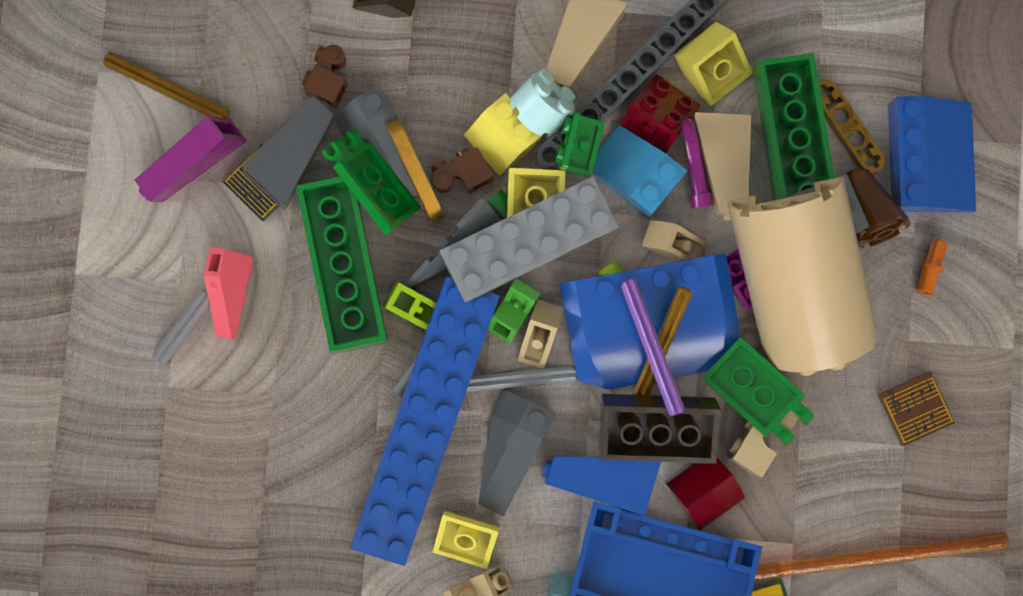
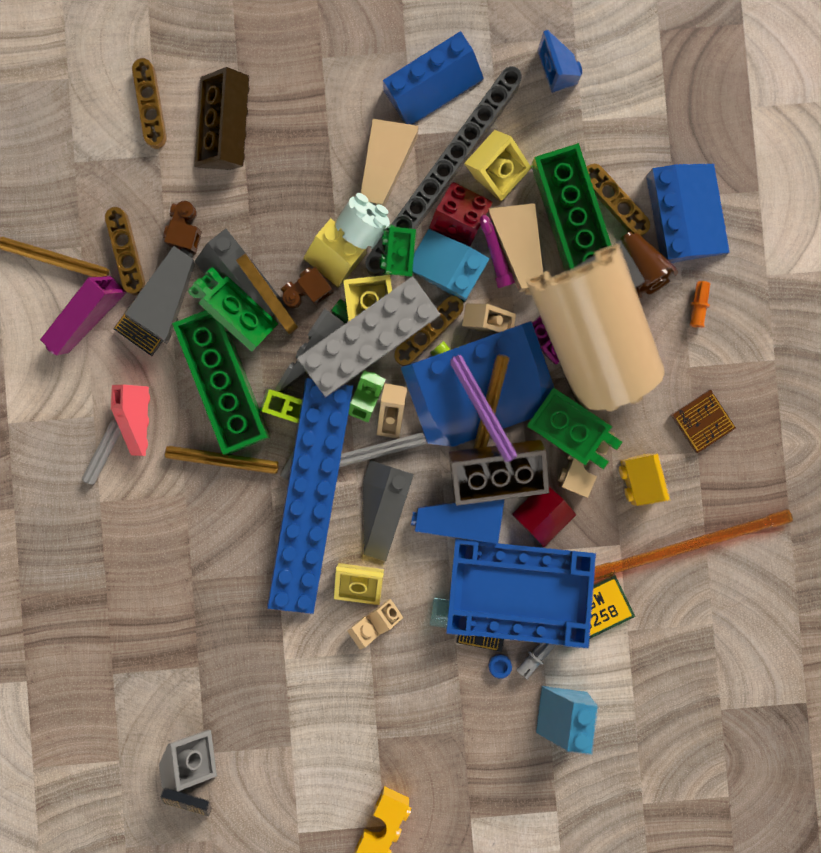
camera: 10 degrees left, 5 degrees up
(249, 93) = (121, 252): none -> pearl gold beam
(325, 359) = (219, 459): none -> pearl gold axle
(603, 250) = (431, 333): none -> pearl gold beam
(833, 467) = (643, 479): none -> yellow slope

